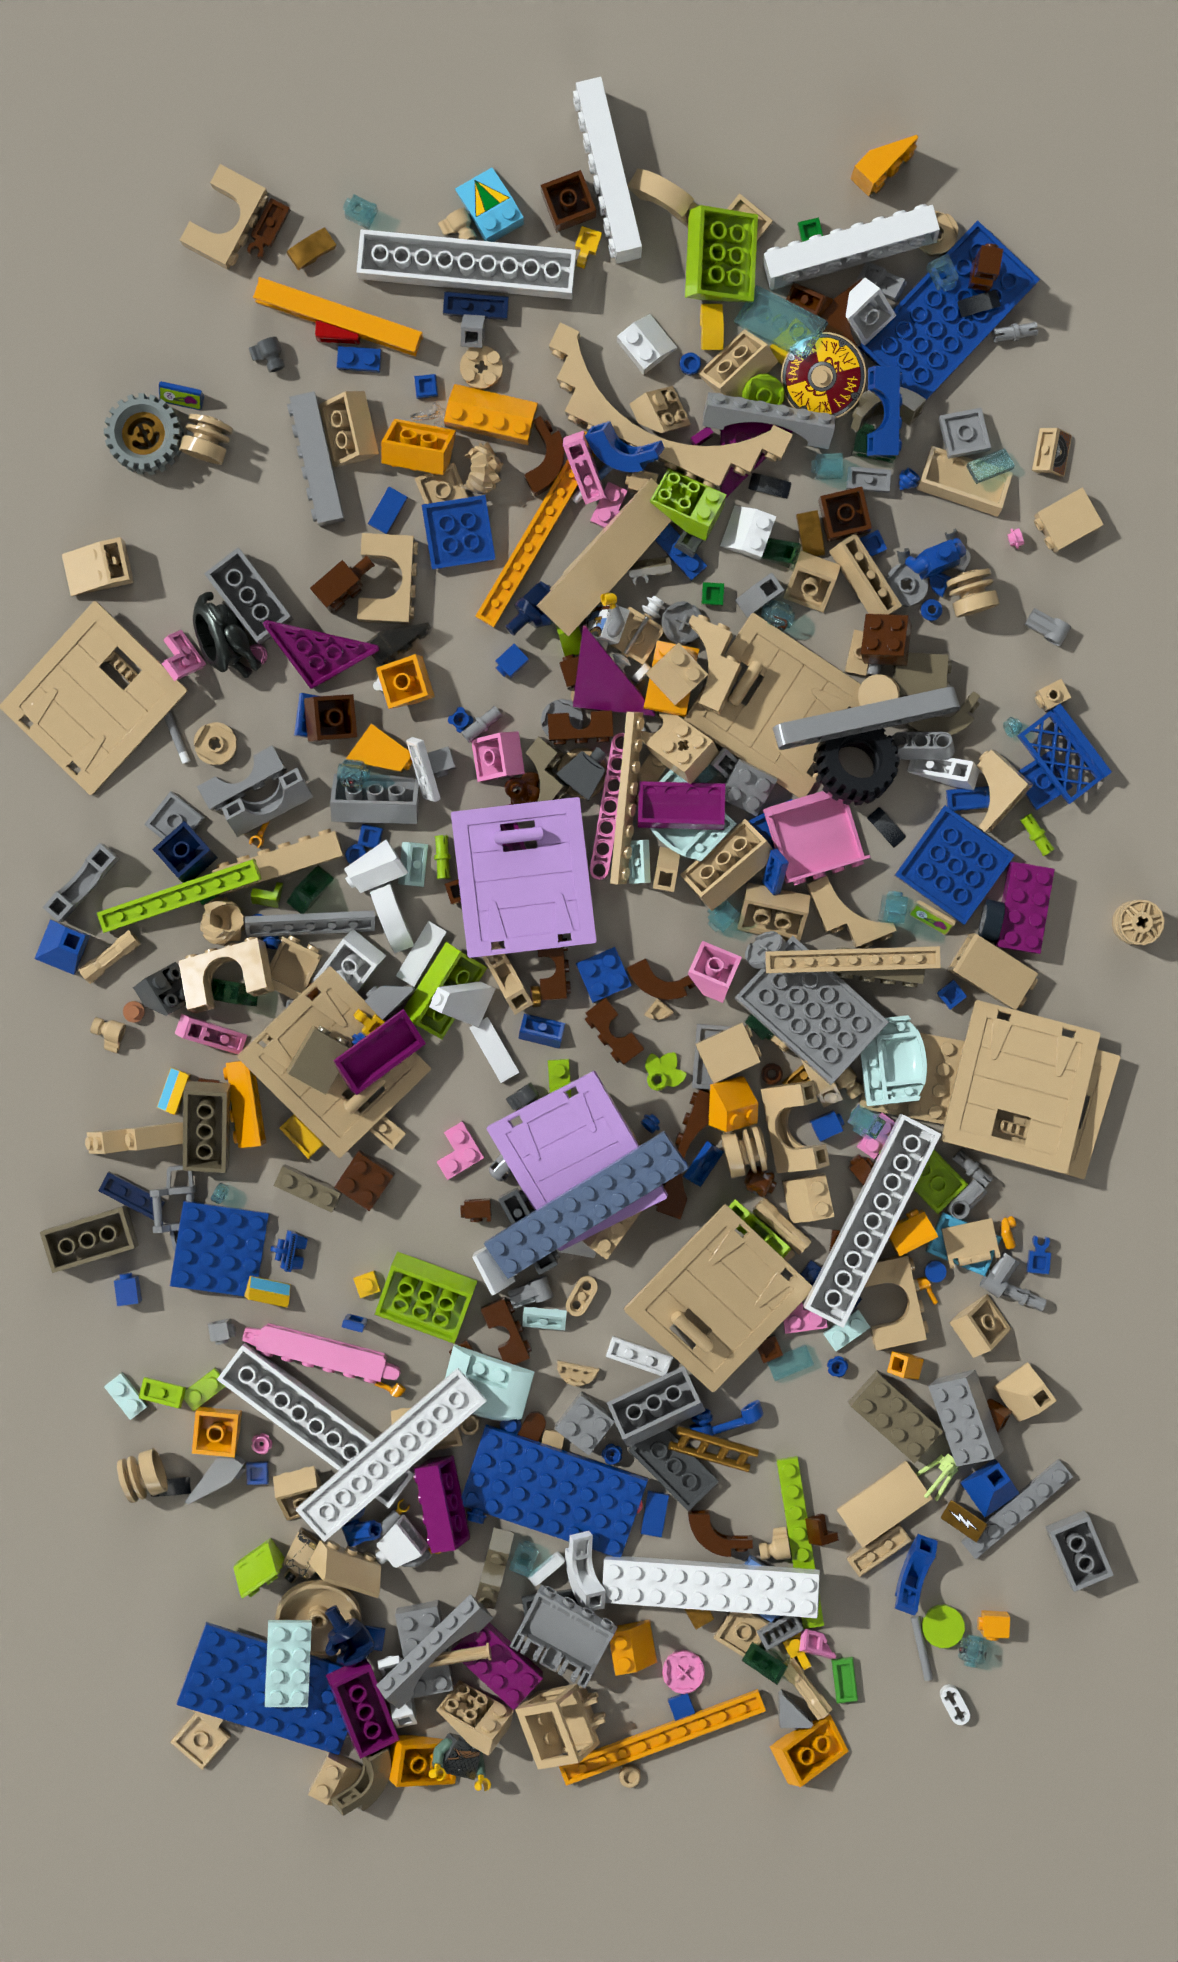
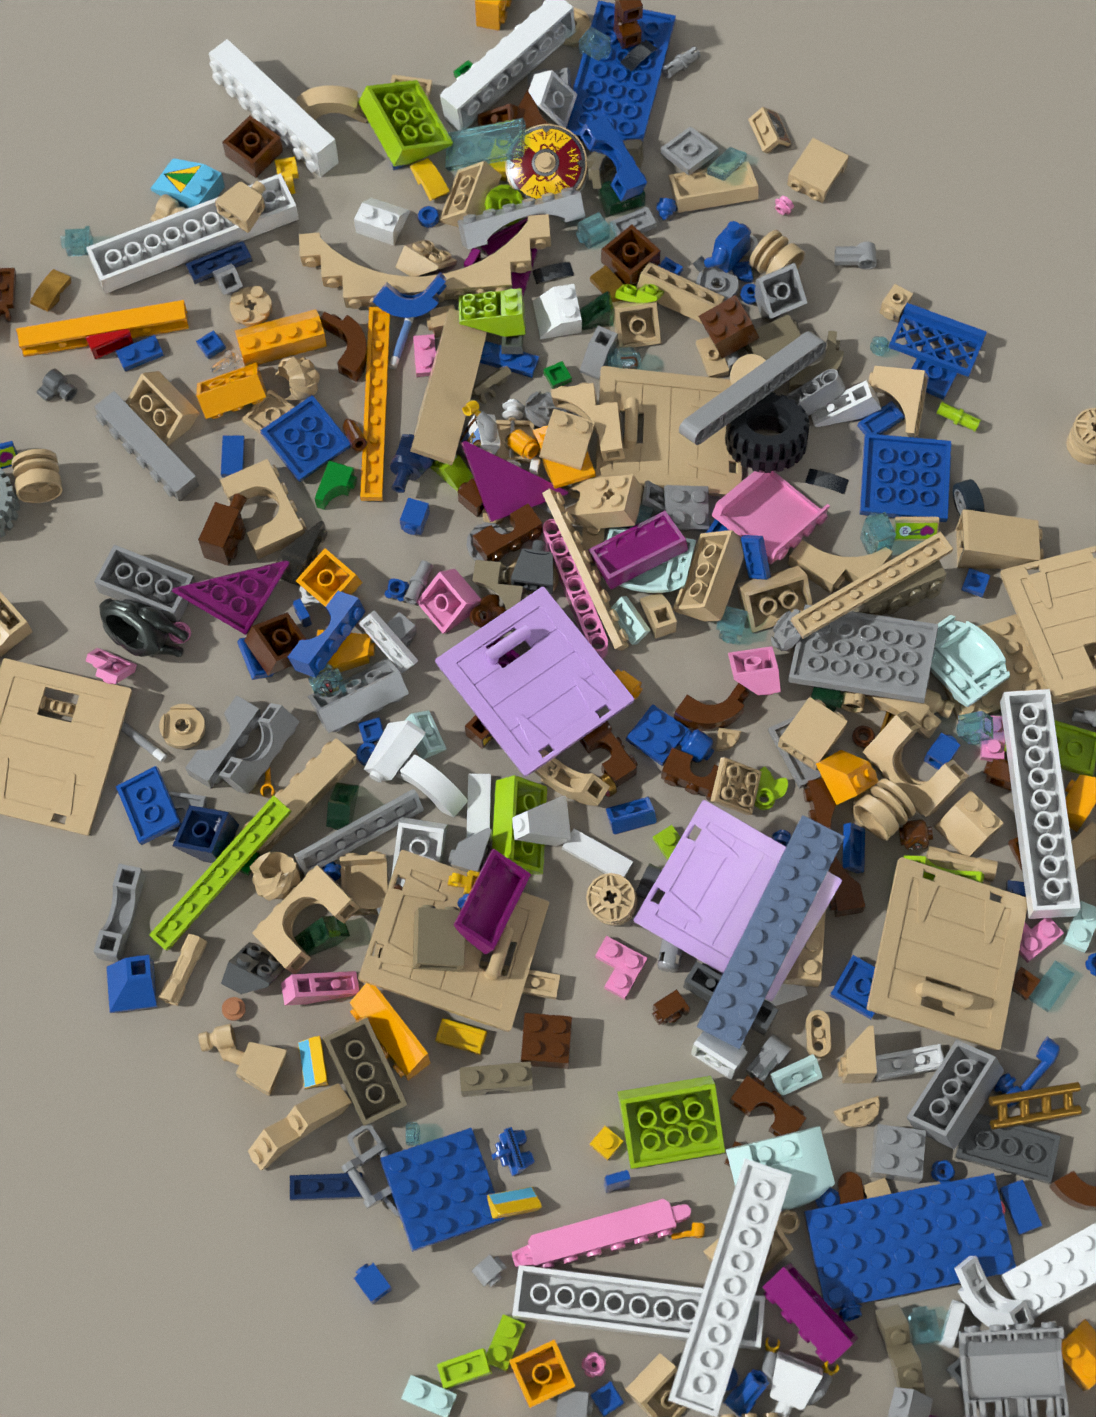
camera: 30 degrees left, 20 degrees down
(89, 1239) = (306, 1250): dark tan brick -> none
(128, 1071) = (258, 1065): none -> tan torso
(152, 799) = (148, 805): none -> blue tile
(267, 898) = (304, 833): lime tile -> none
(352, 749) = (313, 654): none -> blue arch
(368, 697) = (302, 613): none -> blue tile
(442, 857) = (448, 711): lime pin -> none
(462, 587) = (336, 481): none -> green arch
(489, 1090) = (625, 903): none -> tan wheel
(502, 552) = (354, 435): none -> reddish brown cylinder
(522, 268) = (242, 204): none -> tan torso
(583, 467) = (386, 330): bright pink slope -> none
(598, 1336) = (859, 1060): none -> tan slope
(603, 917) = (630, 683): none -> light orange brick
(629, 1005) = (698, 745): none -> blue head
(635, 1274) = (855, 986): none -> blue plate
(637, 1061) = (736, 786): none -> tan tile
(640, 649) = (523, 444): none -> light orange brick
(831, 564) = (645, 294): none -> lime slope
(953, 631) = (779, 292): none -> light grey slope
(1026, 907) = (987, 464): magenta brick -> none

